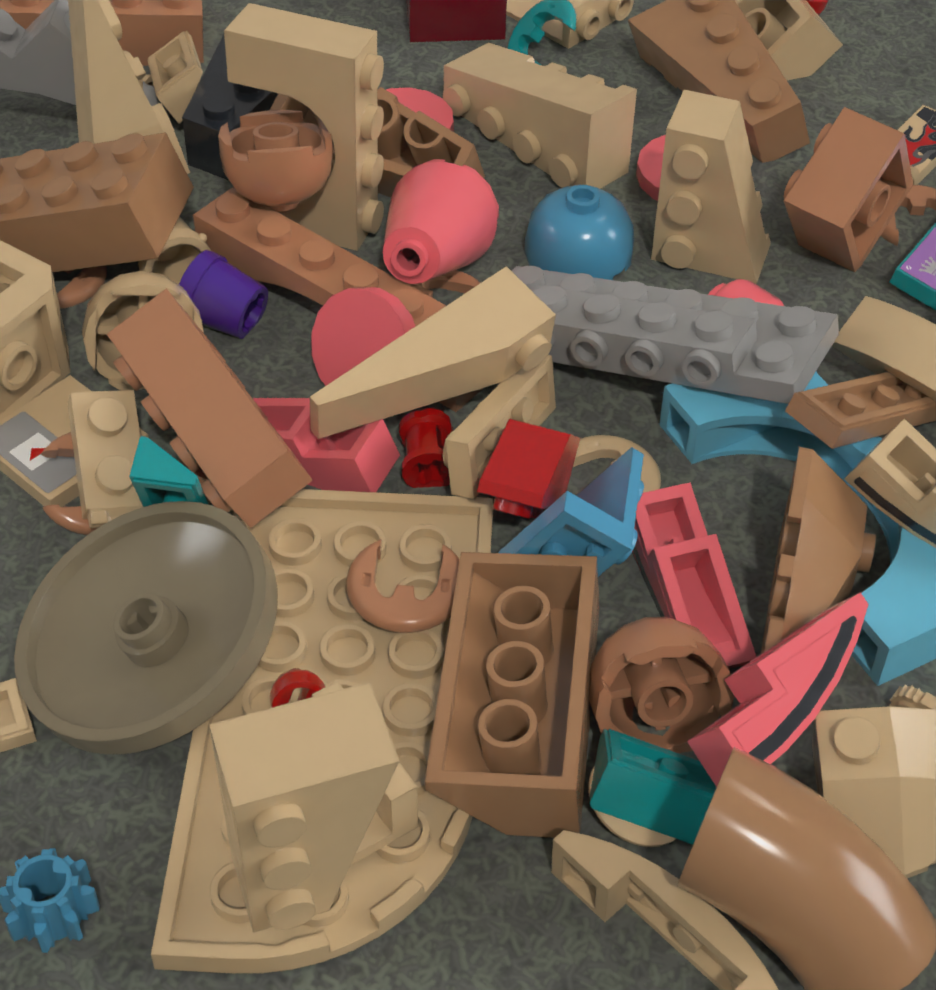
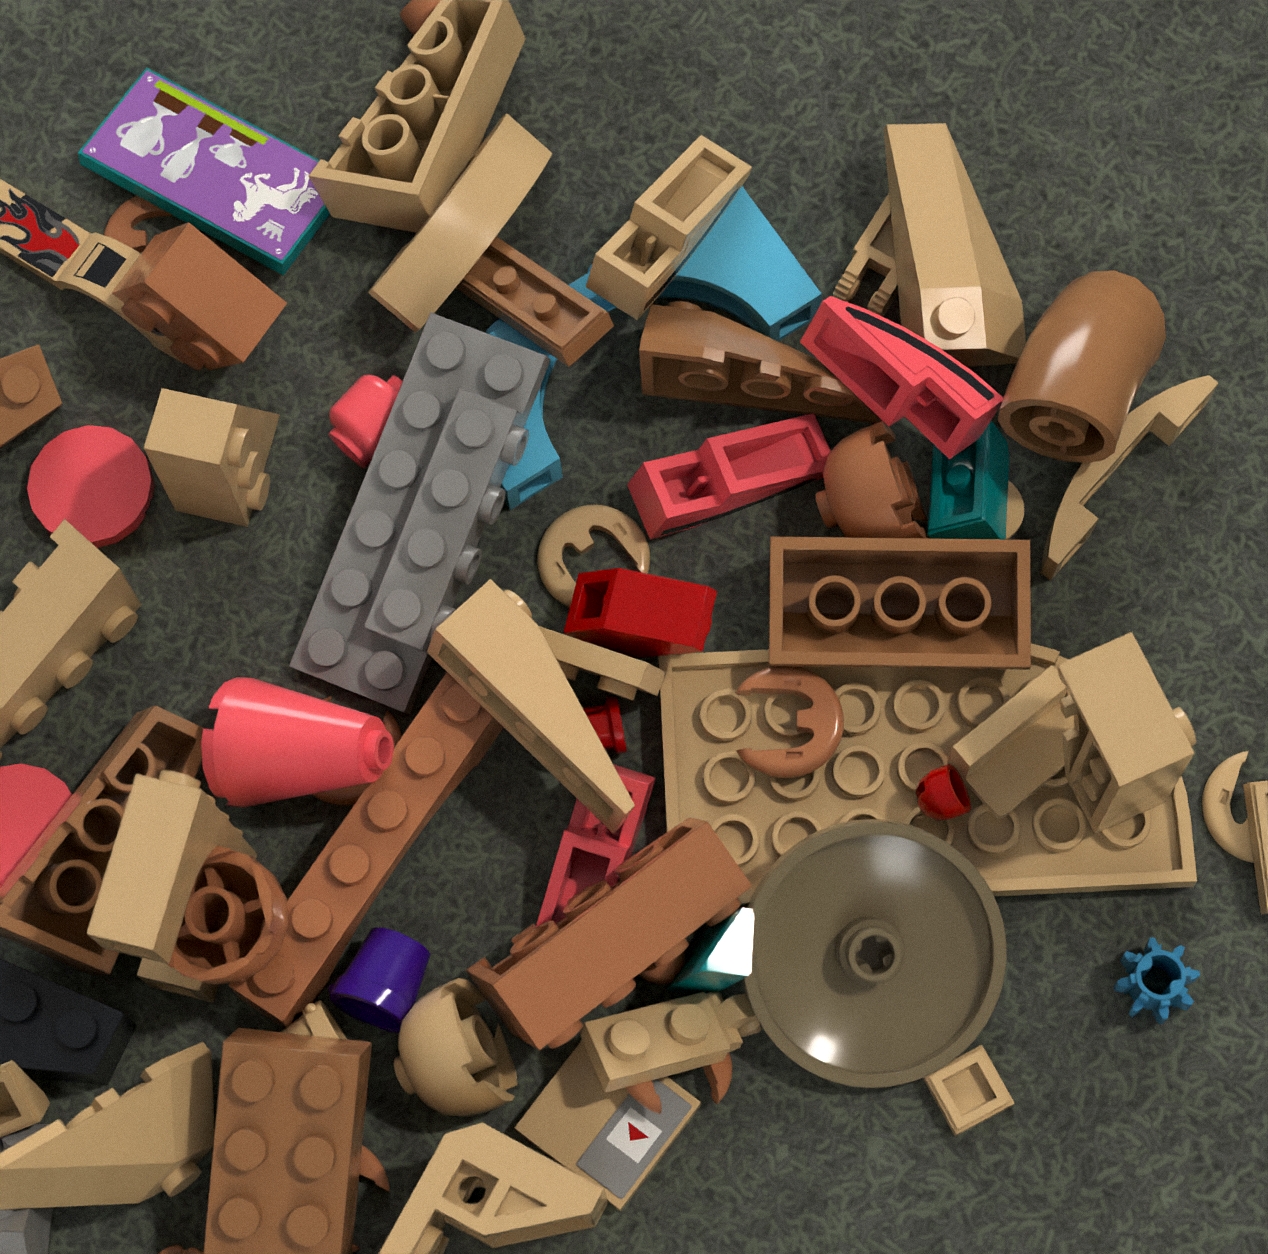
camera: 90 degrees left, 25 degrees up
(354, 328) = (472, 801): coral tile -> none
(580, 233) = (237, 601): dark azure cylinder -> none
(594, 521) = (713, 546): dark azure bracket -> none

